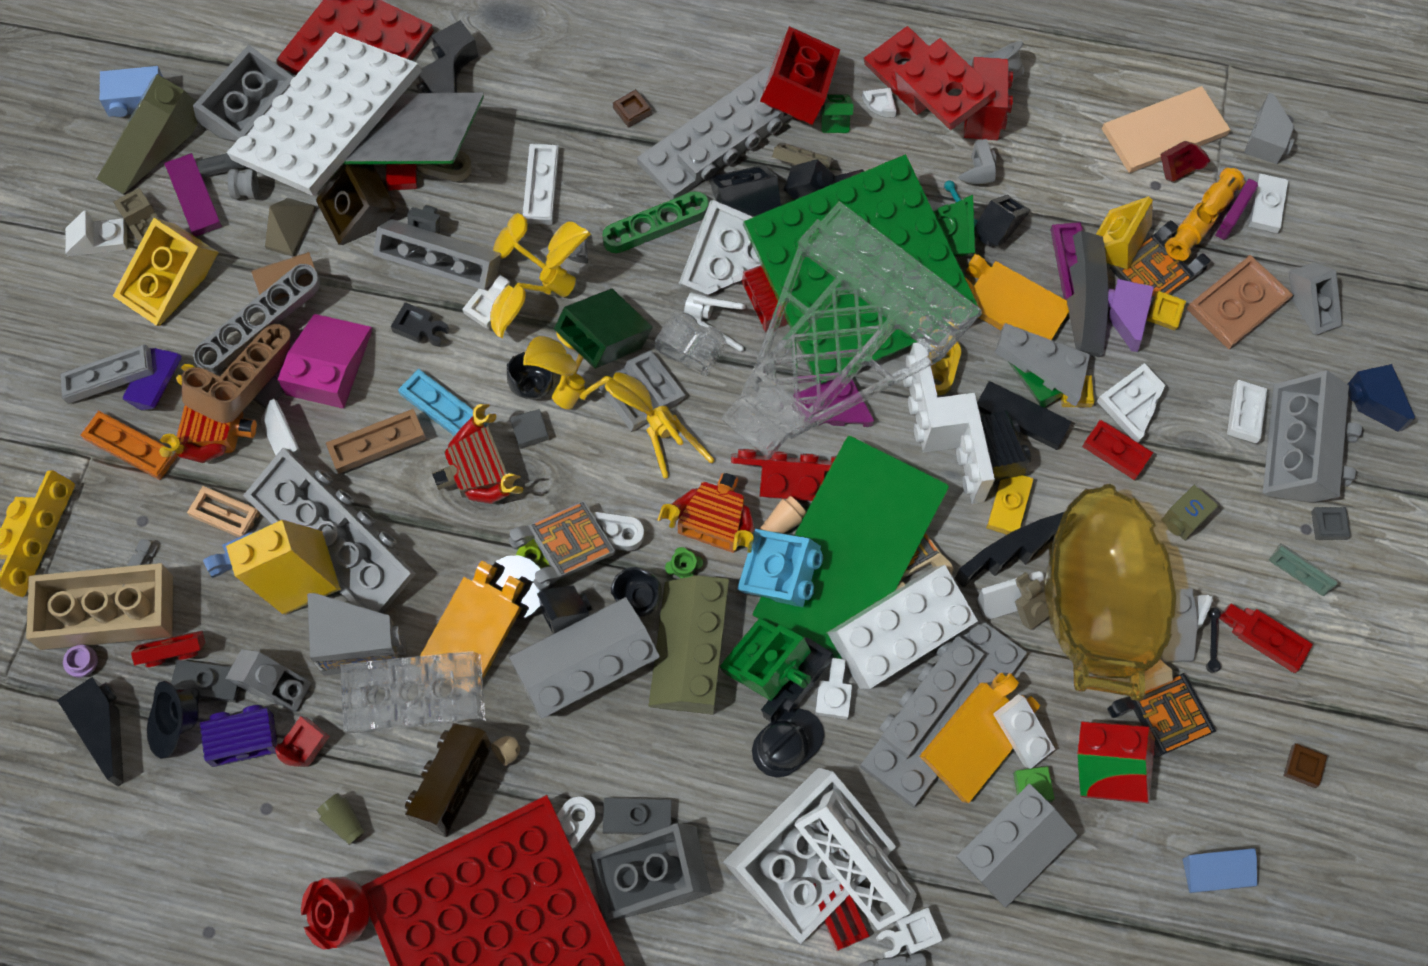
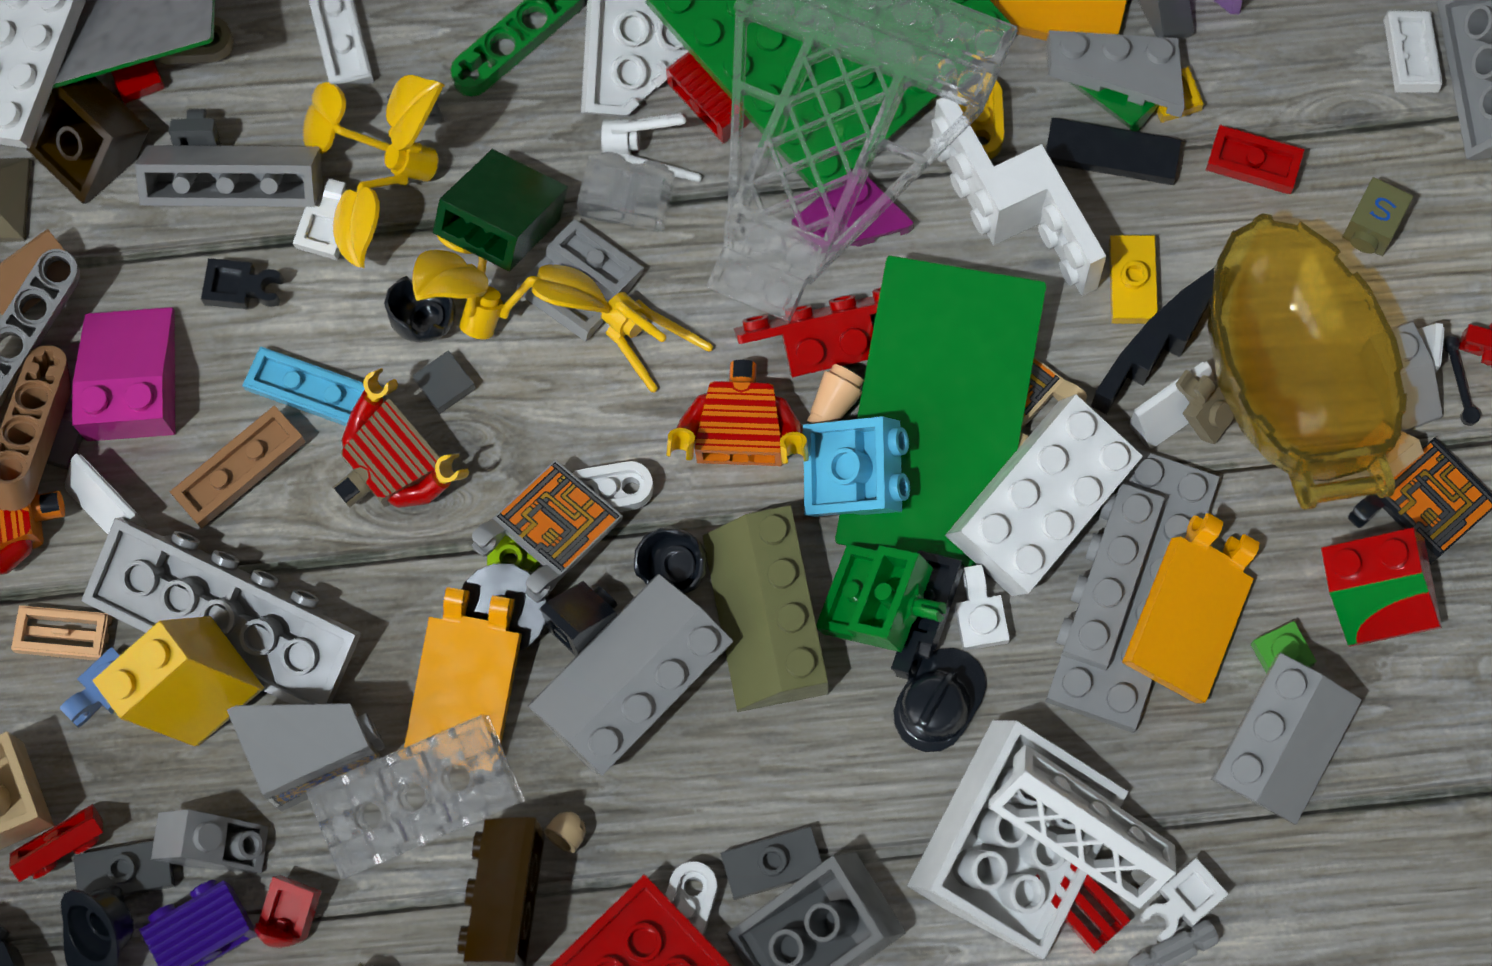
camera: 10 degrees left, 5 degrees up
(681, 556) = (717, 492): bright green plate -> none
(1005, 450) = (1106, 208): black brick -> none
(1024, 731) = (1249, 584): white plate -> none
(1133, 401) = (1256, 85): white wing -> none

